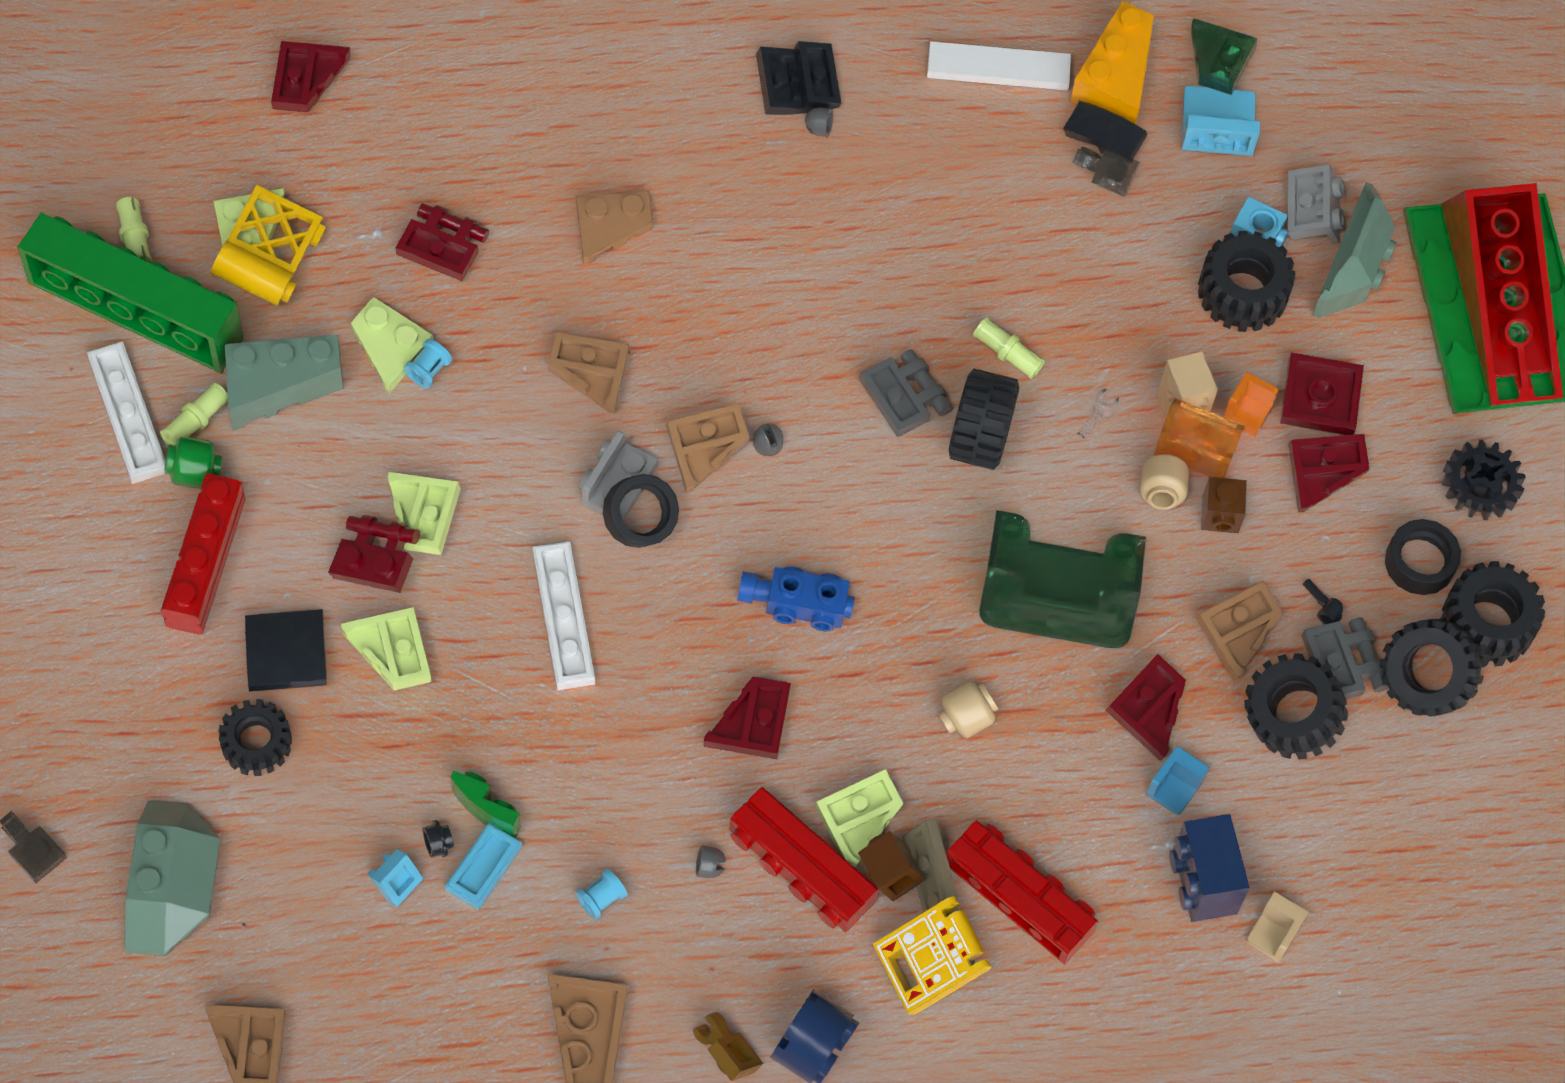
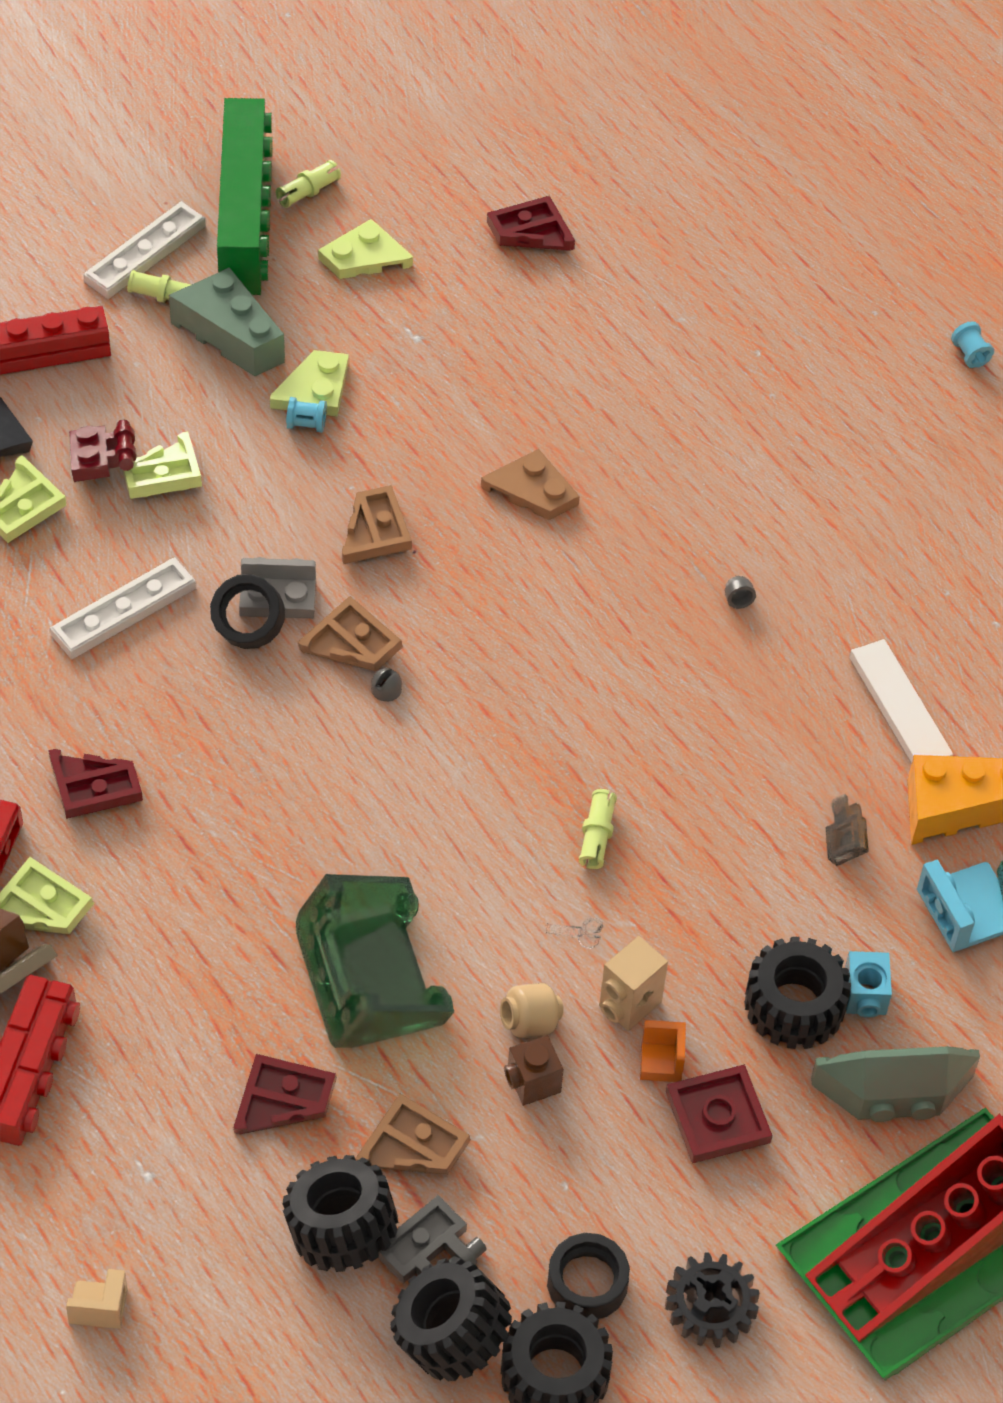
camera: 65 degrees right, 10 degrees down
(190, 461) = (117, 298): green head -> none
(258, 270) = (320, 272): yellow piece -> none
(439, 249) = (422, 379): dark red plate -> none
(798, 78) = (774, 558): black slope -> none
(806, 600) = (234, 761): blue brick -> none
(895, 396) = (488, 759): dark grey plate -> none
(968, 709) = (192, 942): tan head -> none
(983, 419) = (492, 823): black tyre -> none
(1104, 130) = (886, 814): black slope -> none
(1177, 781) = (212, 1148): dark azure panel -> none
(1199, 438) = (585, 1011): clear orange slope -> none
(1209, 868) = (121, 1202): dark blue brick -> none
(1315, 203) = (934, 1021): light grey bracket -> none
(1326, 466) = (638, 1149): dark red wing -> none
(1331, 608) = (479, 1217): black hand -> none

